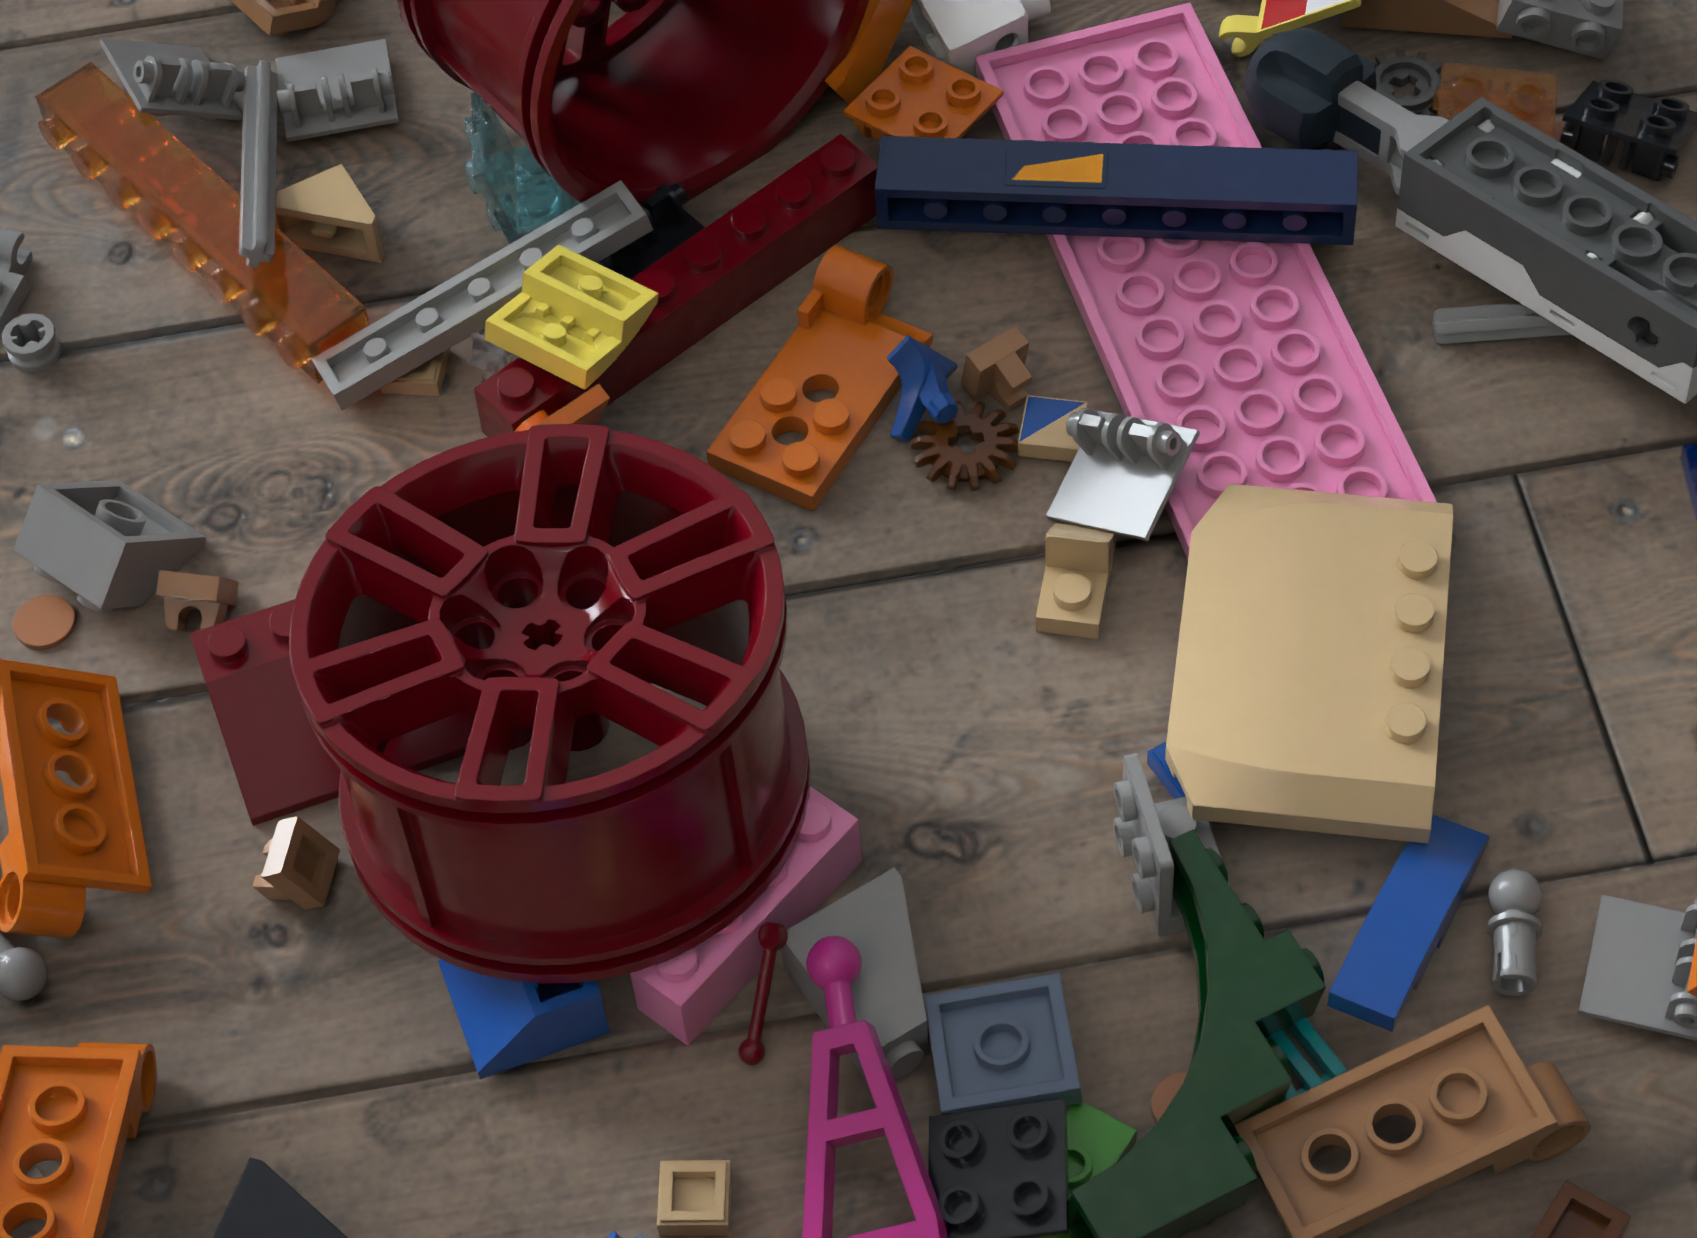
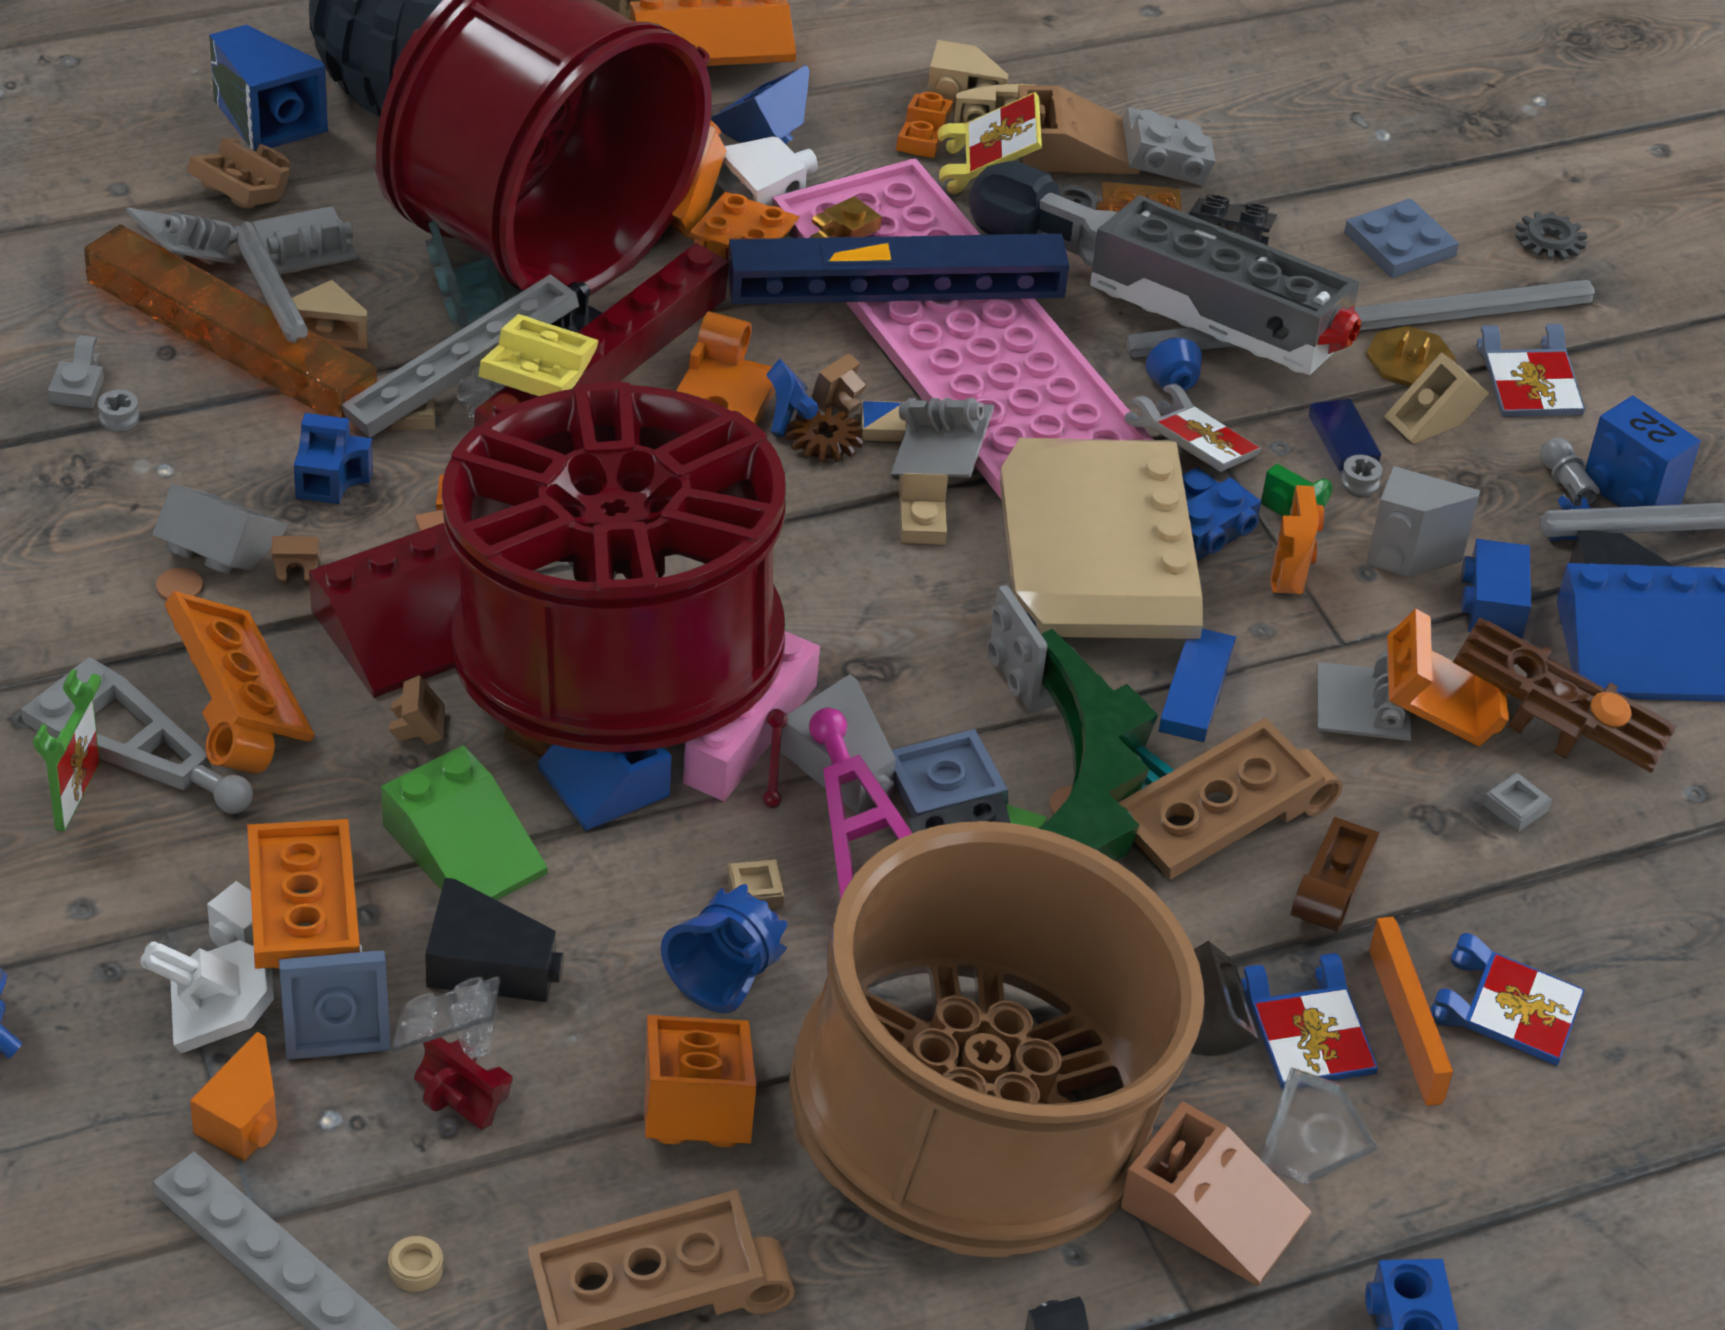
camera: 20 degrees left, 10 degrees down
(274, 446) = (330, 459): none -> blue brick
(306, 1069) = (460, 826): none -> bright green slope
(1064, 103) = (847, 219): none -> pearl gold plate
(1492, 367) = (1175, 362): none -> blue cone
(1495, 621) = (1218, 511): none -> blue plate
(1497, 482) = (1193, 429): none -> flag
(1515, 931) = (1266, 684): light grey pin -> none
(1604, 699) = (1297, 543): none -> orange slope
(1623, 606) = (1281, 486): none -> green plate

